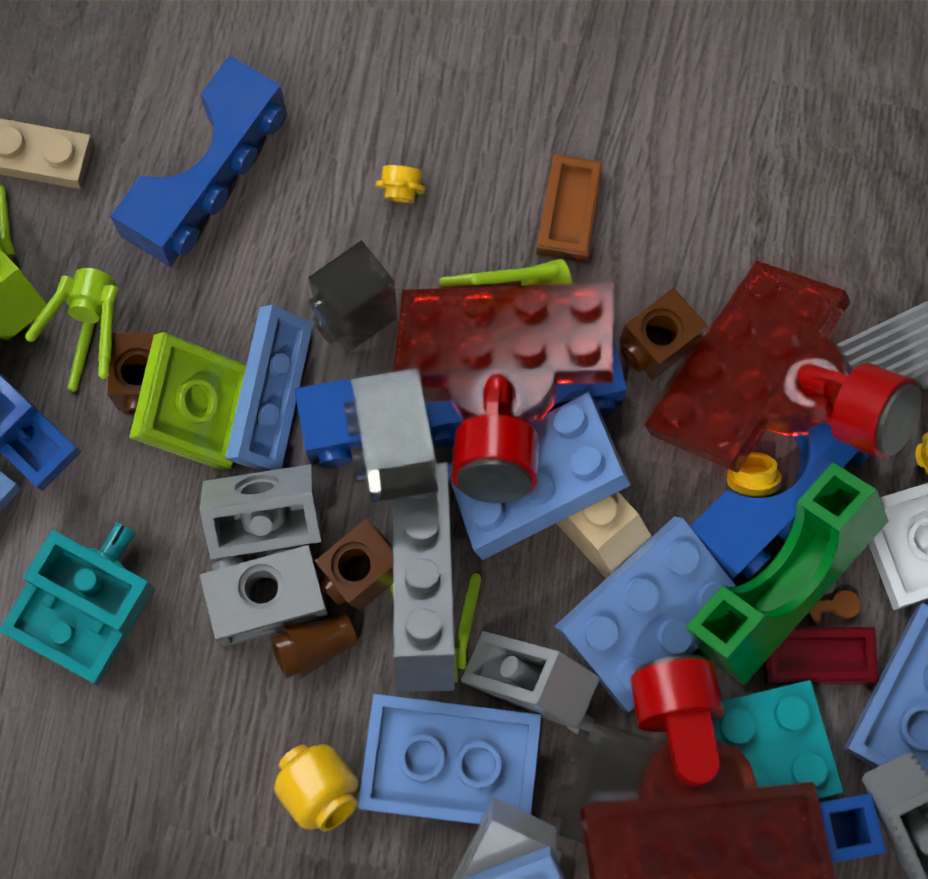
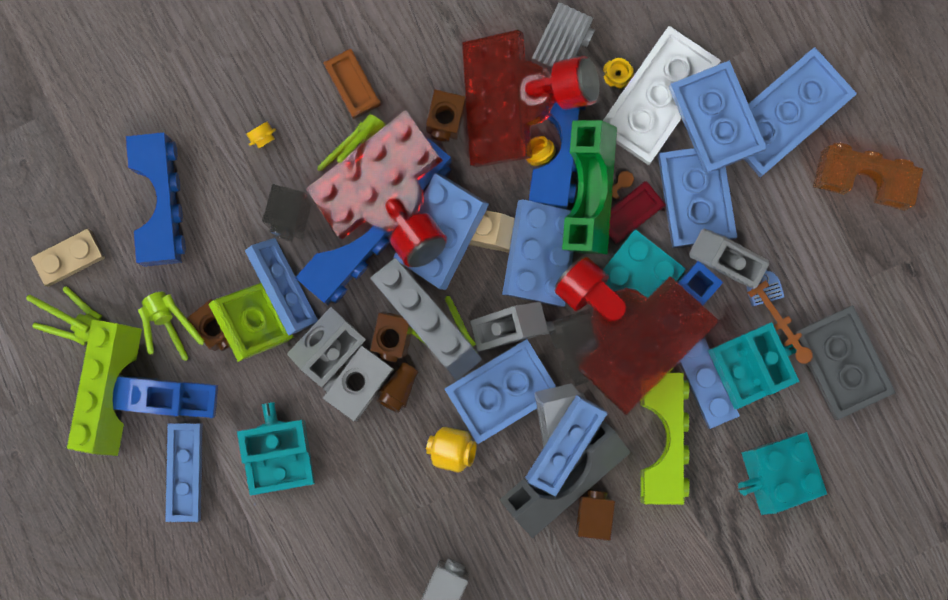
camera: 35 degrees left, 10 degrees up
(394, 434) = (362, 265): clear smoke brick -> none

